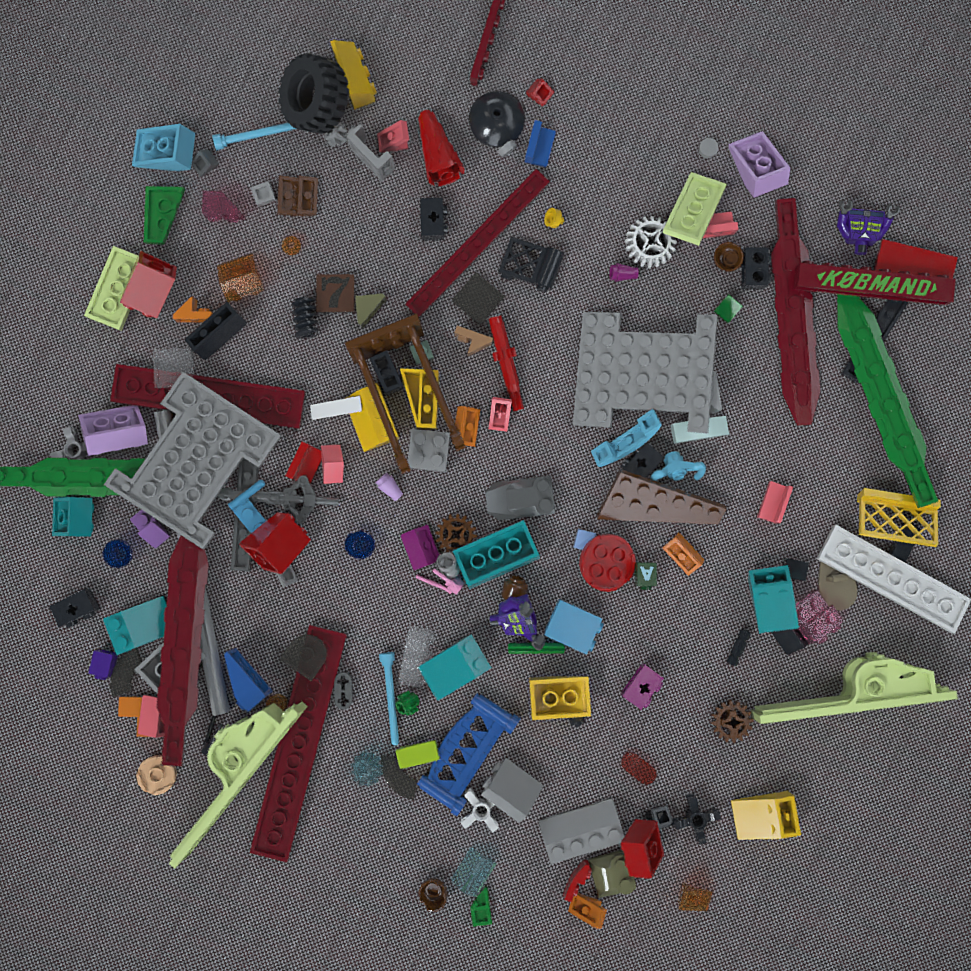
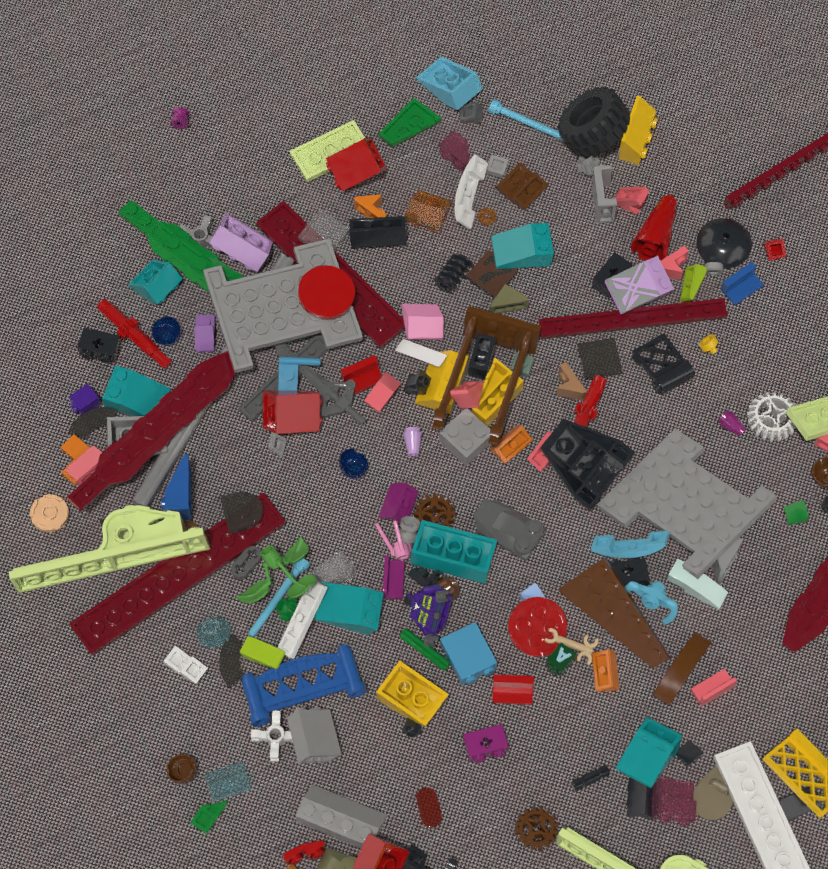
camera: 40 degrees right, 20 degrees down
(86, 575) = (129, 329): none -> red piece
(220, 421) = (326, 292): none -> red tile
(257, 237) = (466, 190): none -> white slope
(315, 379) = (423, 321): none -> bright pink slope
(342, 250) = (523, 247): none -> teal slope
(354, 436) = (417, 383): none -> black bracket
(365, 809) = (185, 665): none -> white slope
(372, 708) = (275, 560): none -> bright green plant
(404, 417) = (468, 394): none -> coral slope
(426, 705) = (302, 619): none -> white plate
(463, 212) = (639, 285): none -> lavender slope
(466, 612) = (393, 579): none -> magenta panel
(471, 175) = (673, 261): none -> coral slope
(490, 594) = (421, 576): none -> black bracket
(500, 175) = (692, 280): none -> lime slope
(539, 400) = (585, 460): none -> black wedge
(627, 626) = (513, 689): none -> red panel
(657, 551) = (586, 649): none -> tan bar
(739, 505) = (681, 668): none -> reddish brown slope

